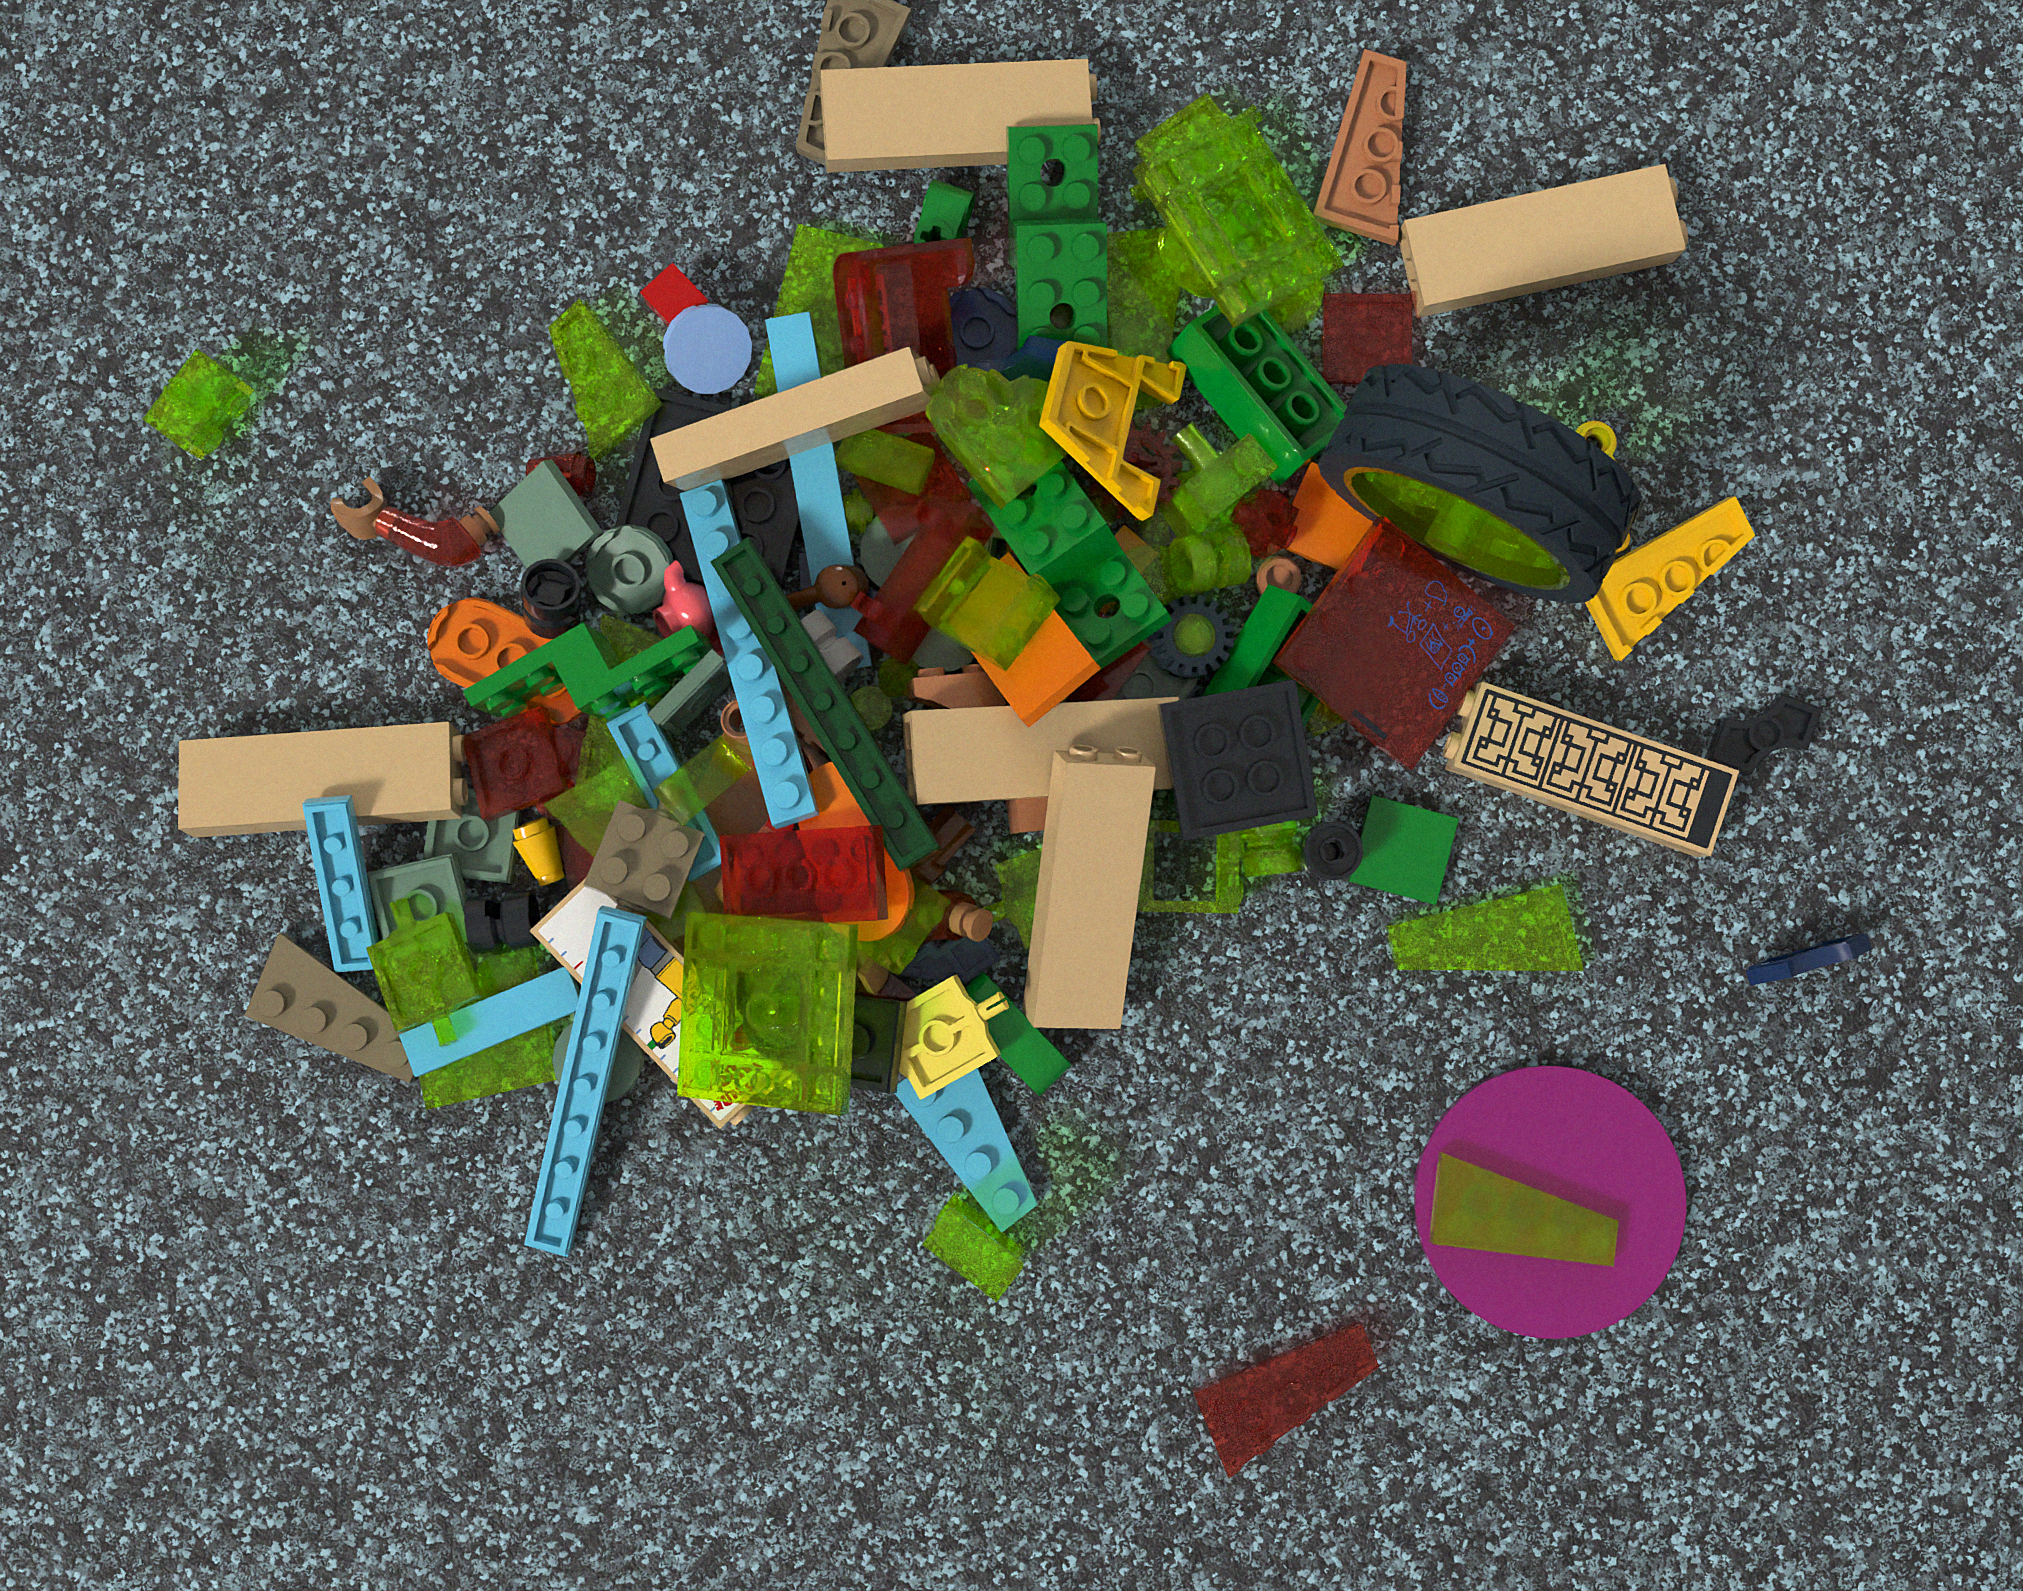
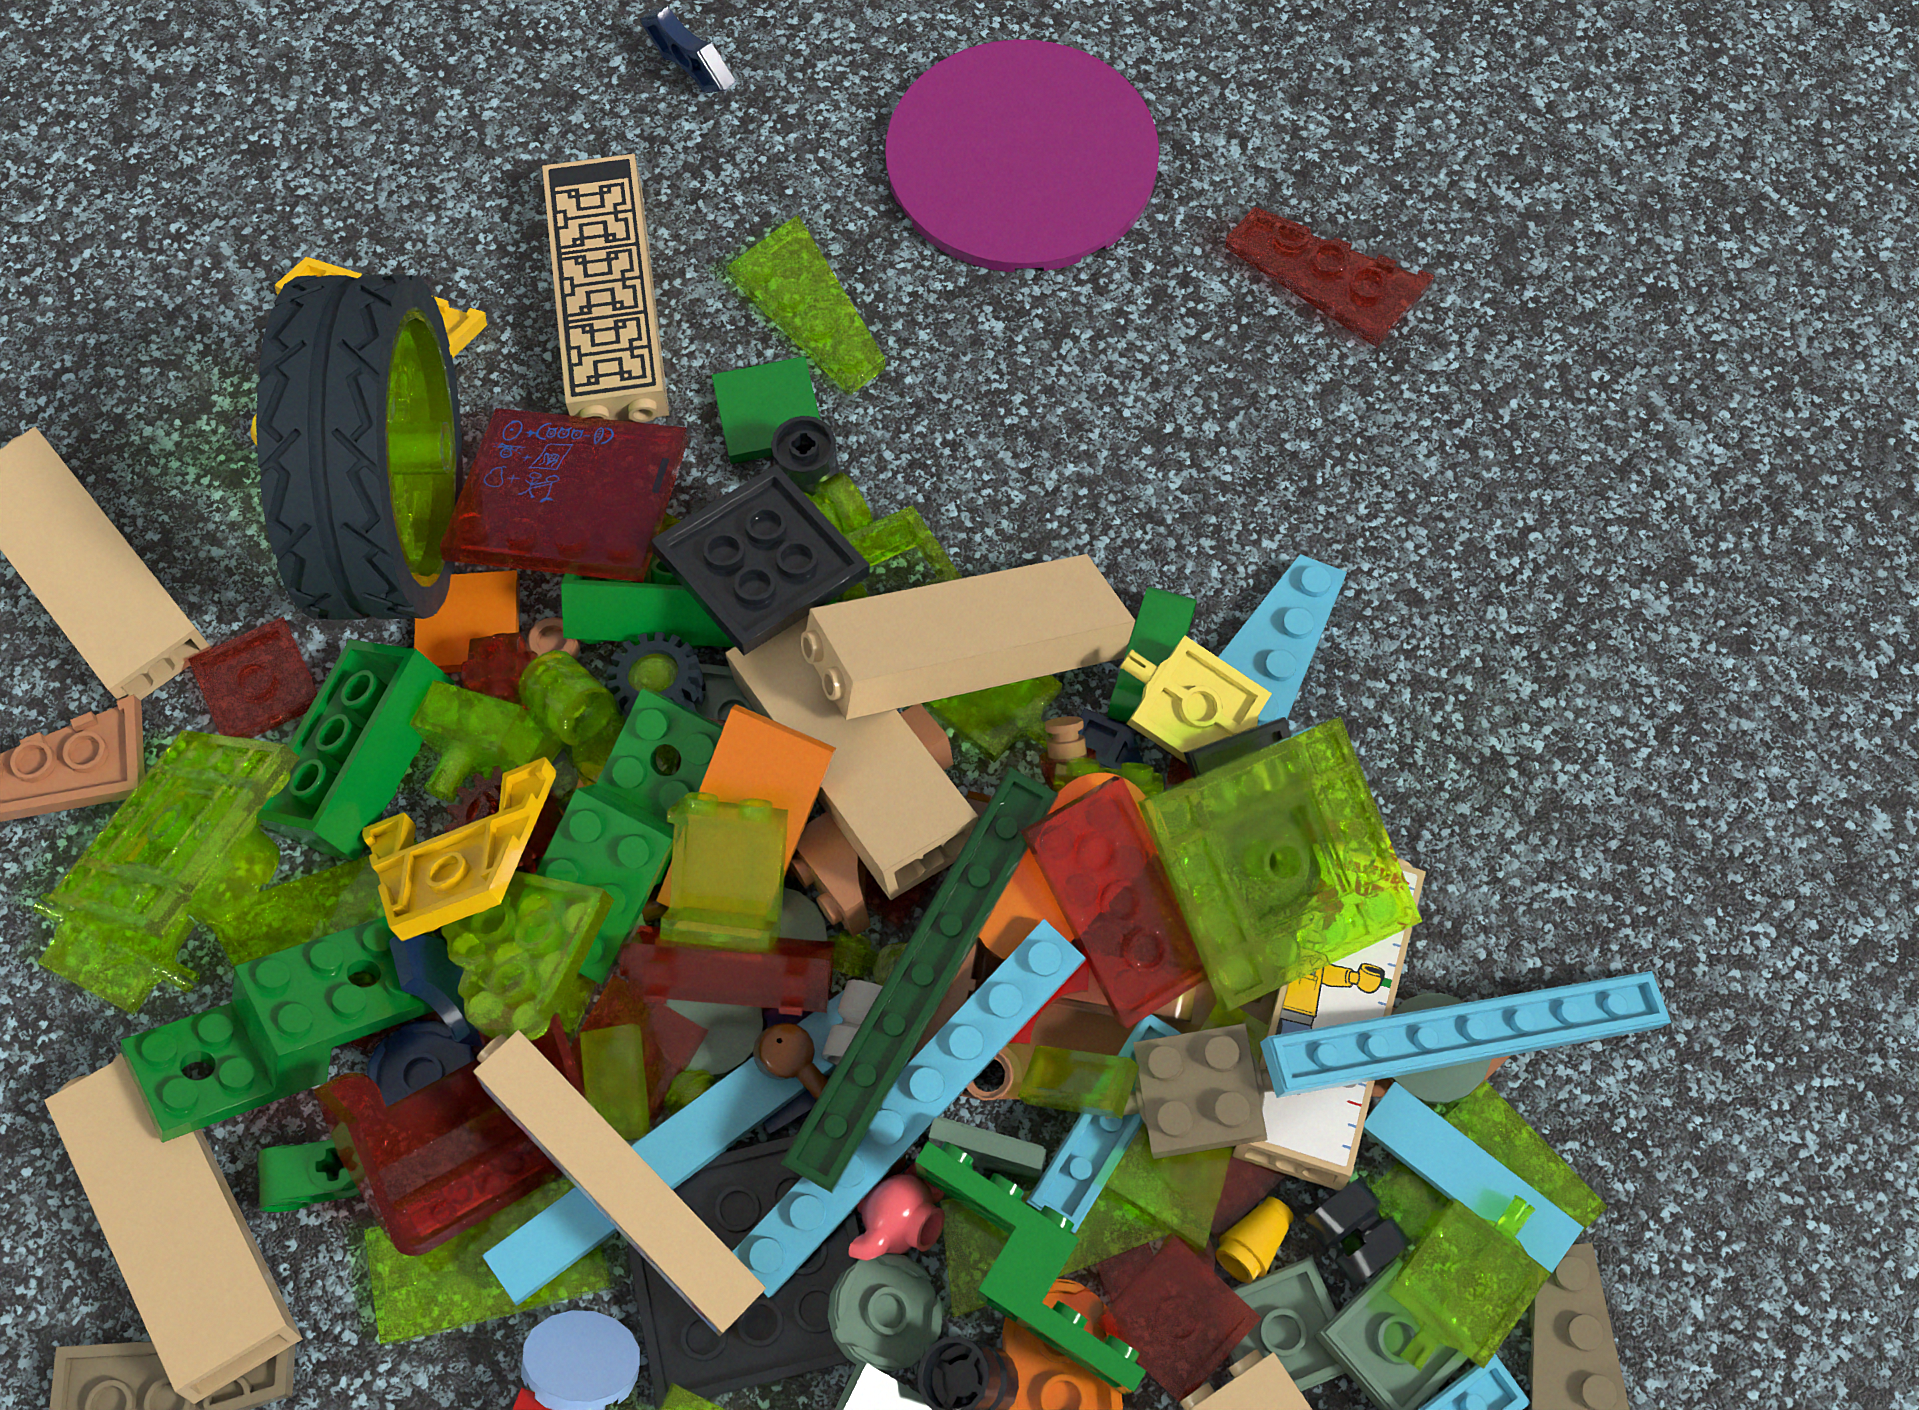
camera: 120 degrees left, 20 degrees down
(974, 1247) = (1379, 573): clear neon green panel -> none
(1505, 1216) = (1056, 169): clear neon green wing -> none
(1746, 742) = (512, 187): black tile -> none

